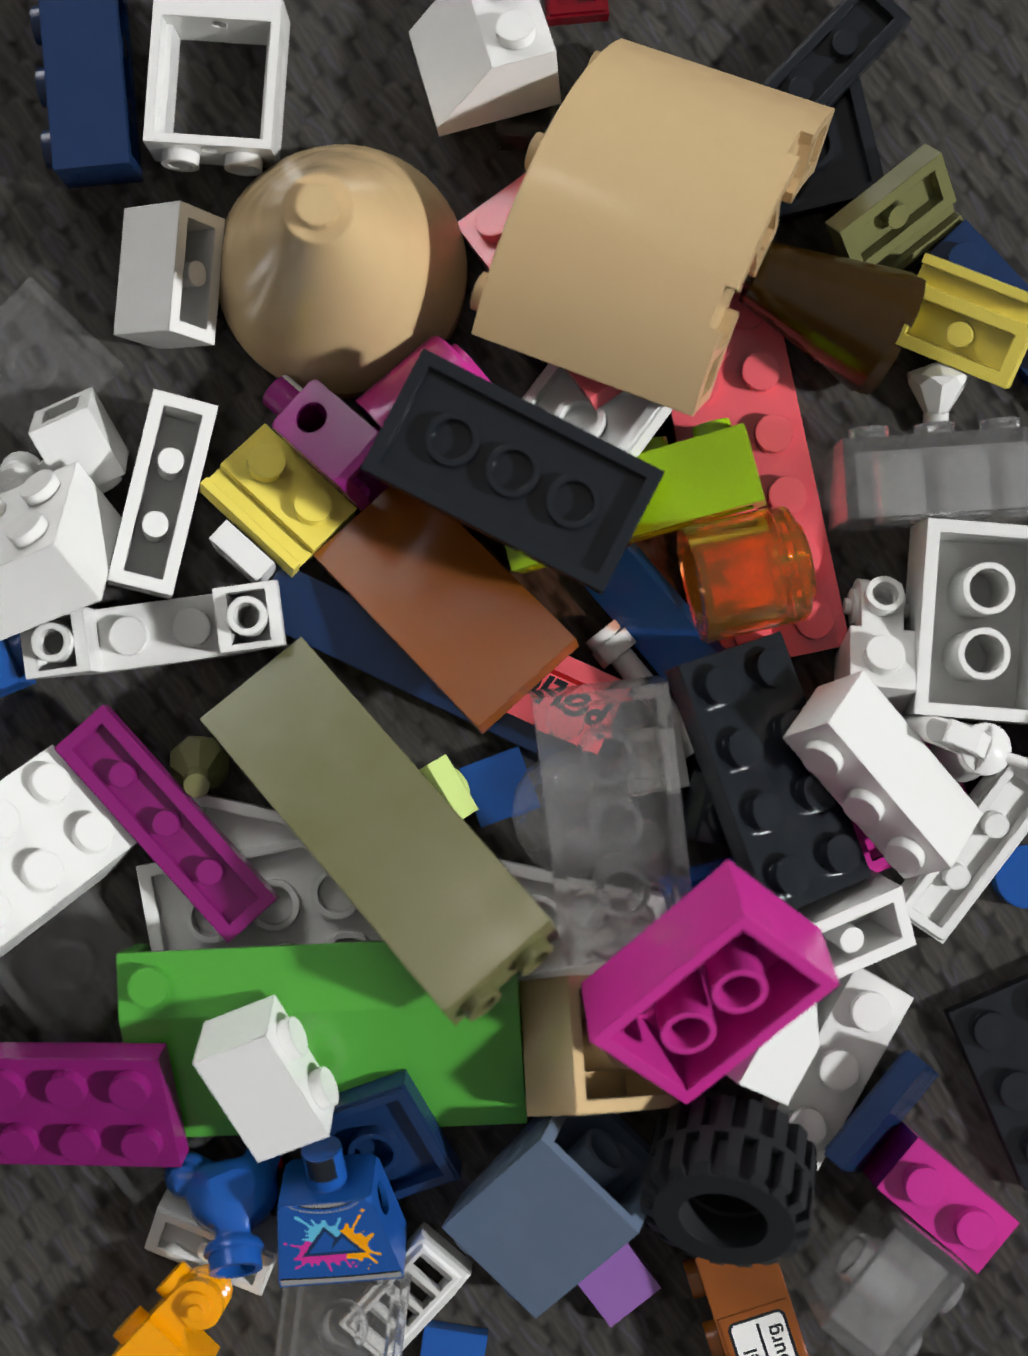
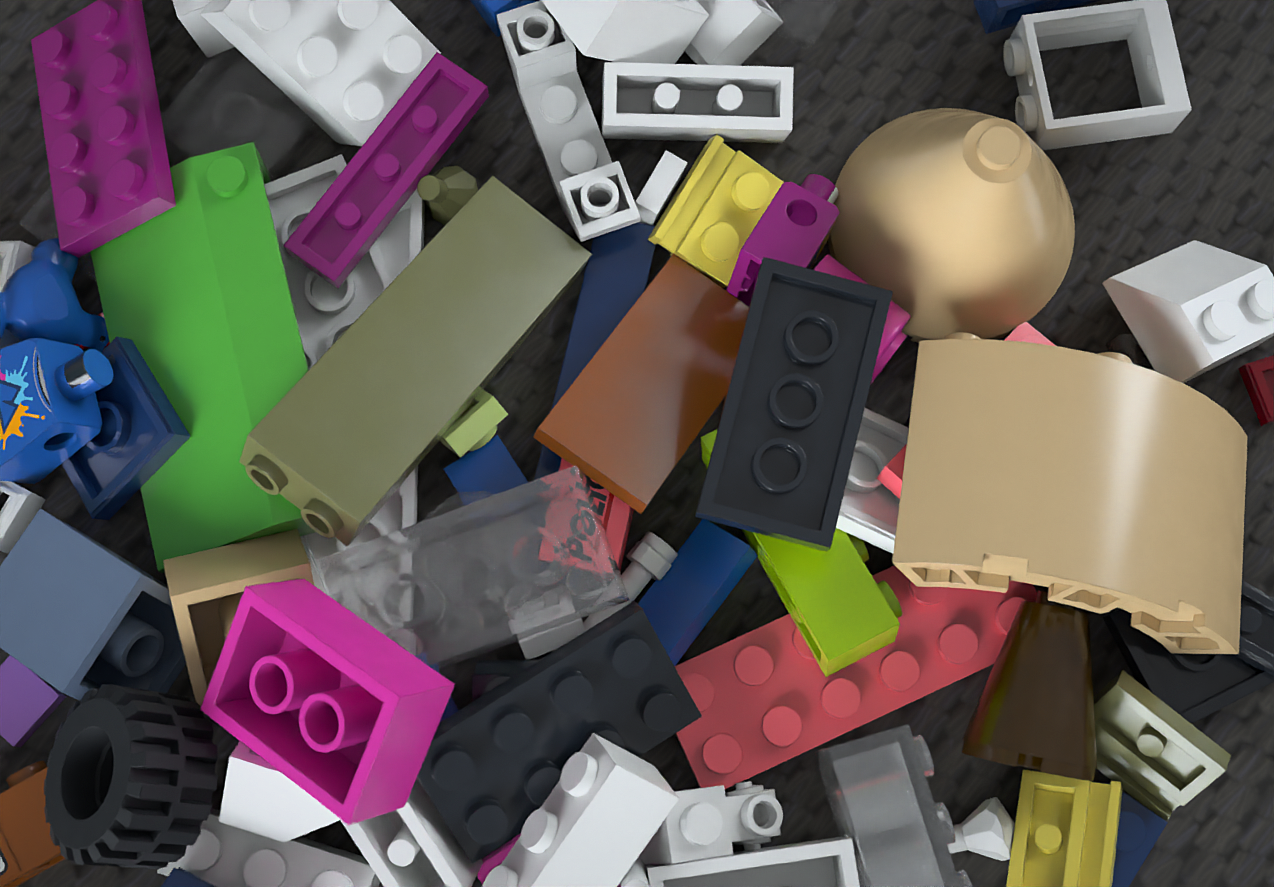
camera: 70 degrees right, 10 degrees down
(169, 275) = (903, 67): white brick -> none
(266, 1078) = (157, 301): white brick -> none
(746, 573) = (751, 663): clear orange piece -> none

